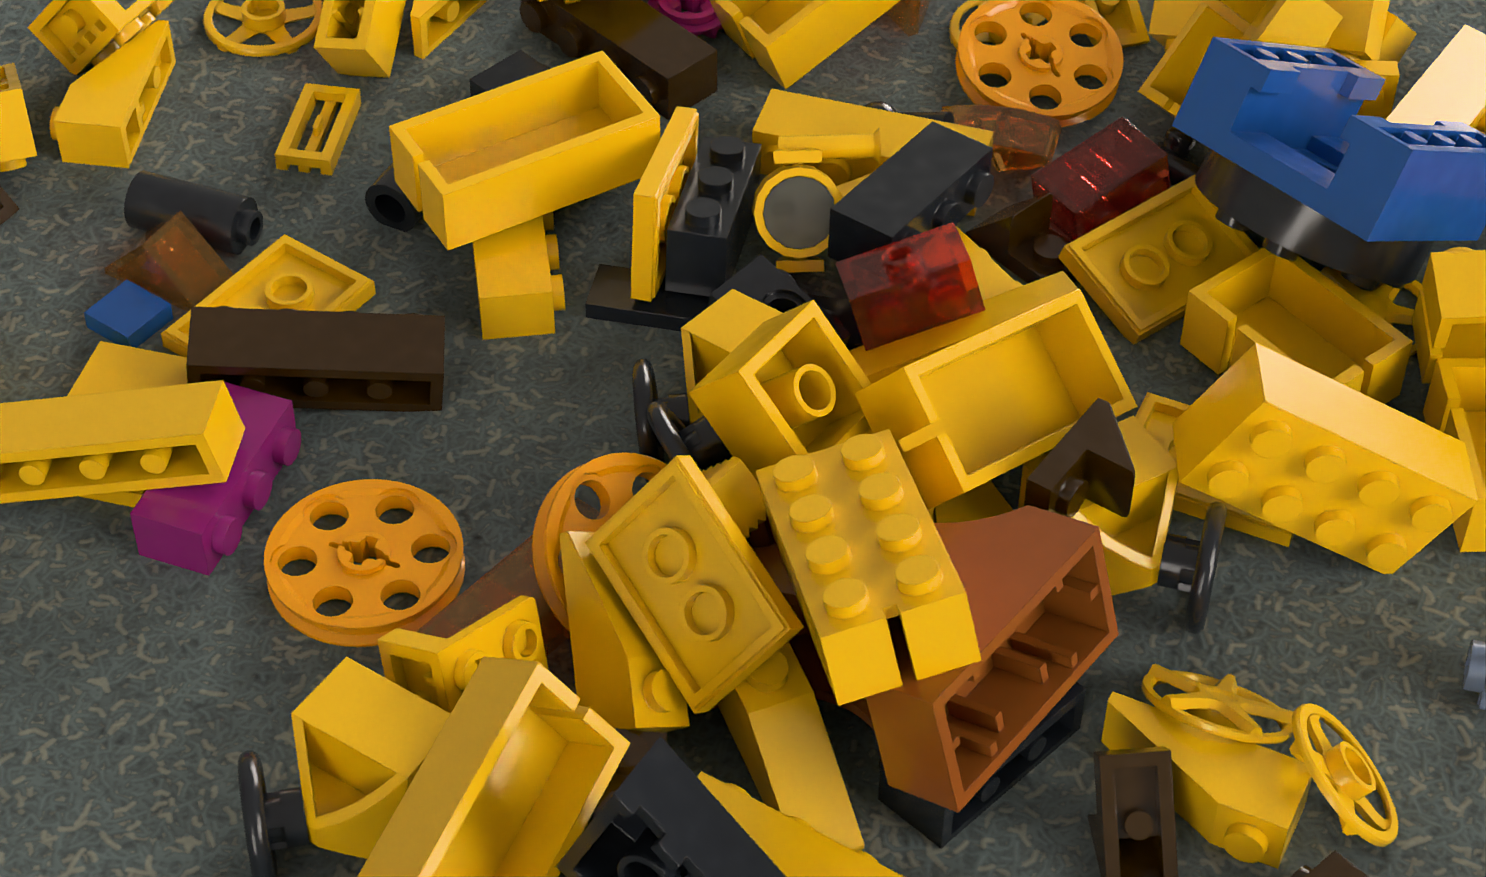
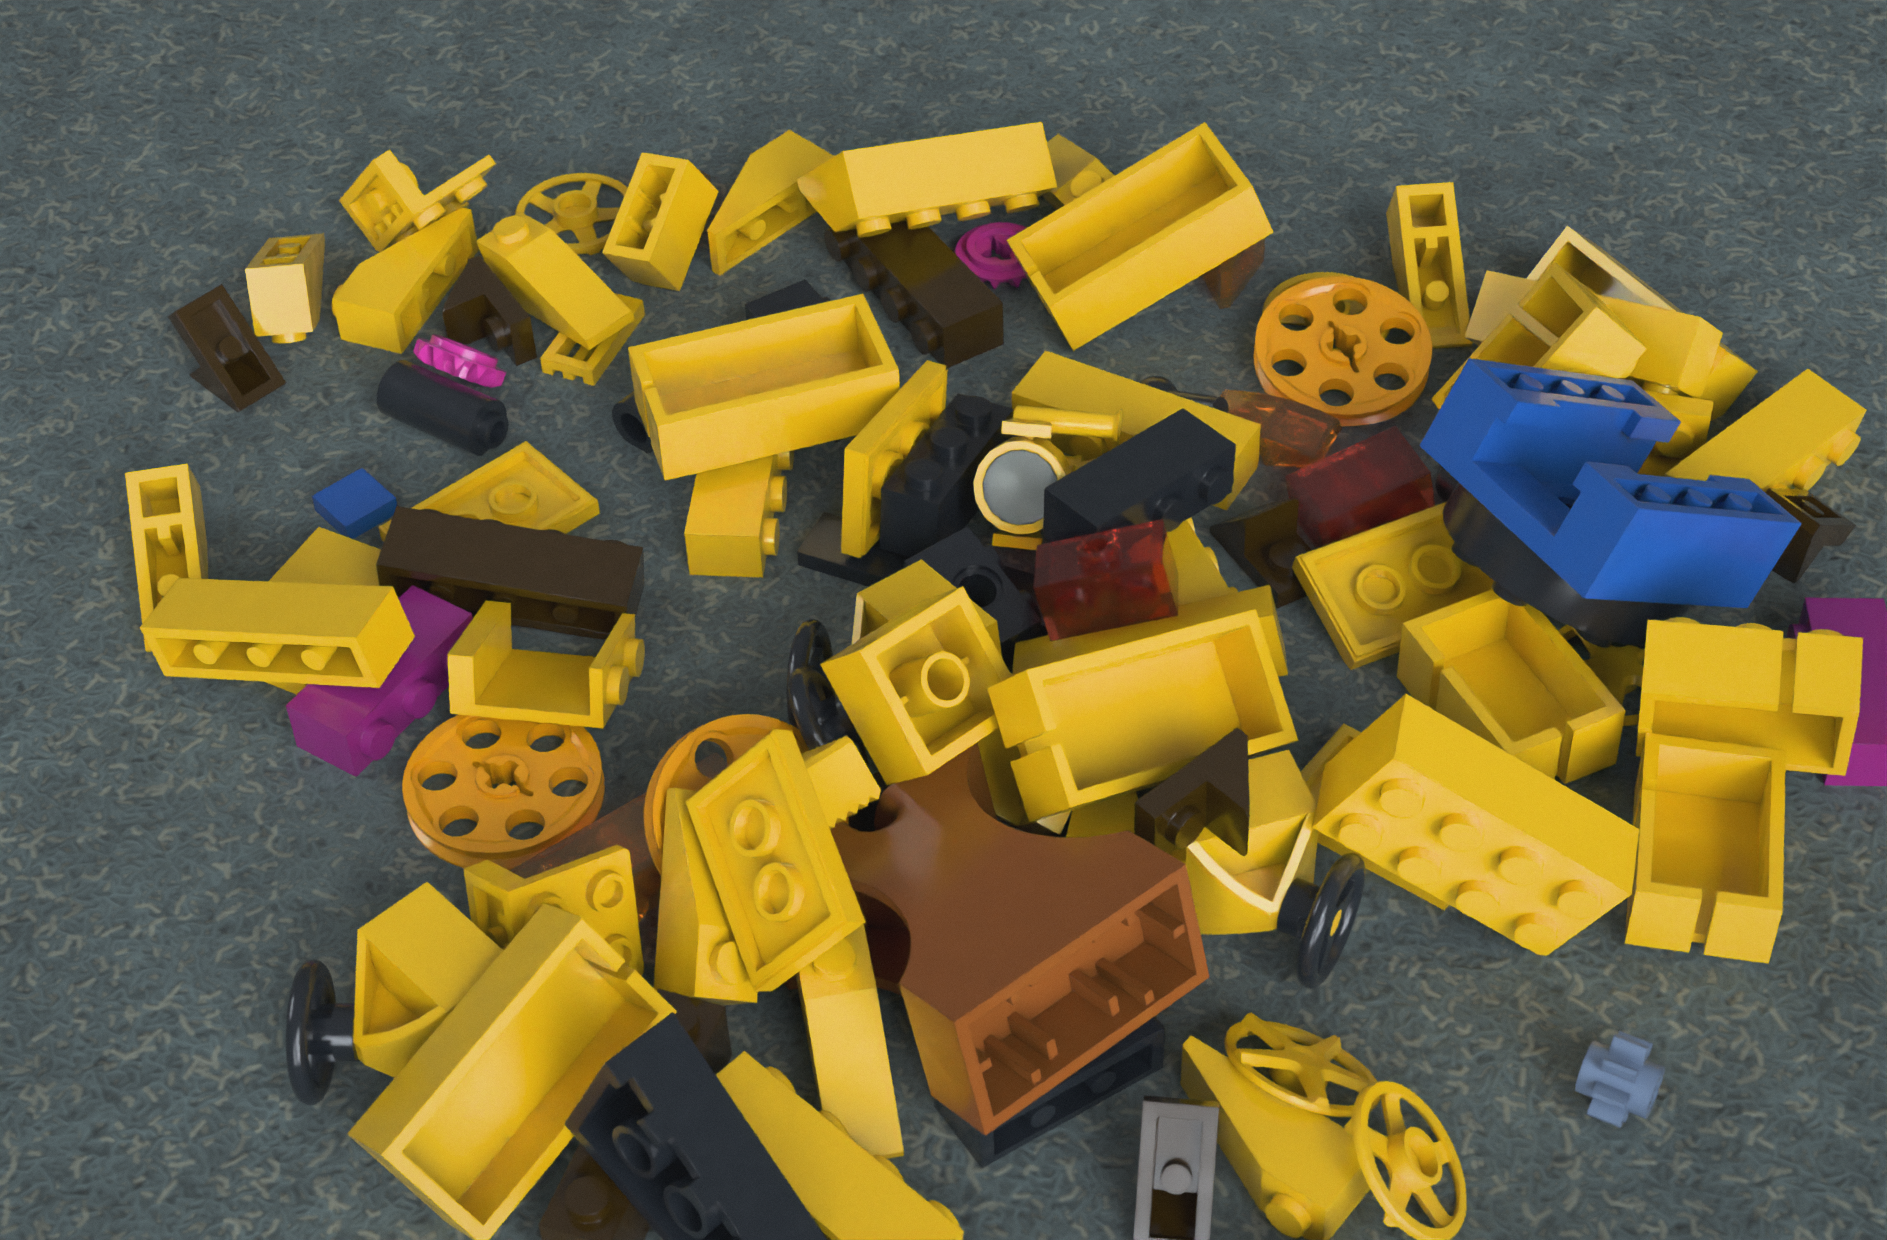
camera: 15 degrees right, 0 degrees up
(172, 263) = (409, 458): clear orange slope -> none
(198, 165) = (460, 360): none -> dark pink gear
(209, 113) = (485, 308): none -> dark brown slope
(265, 79) = (553, 281): none -> yellow slope
(376, 460) = (539, 686): none -> yellow panel
(863, 554) = (934, 854): yellow piece -> none

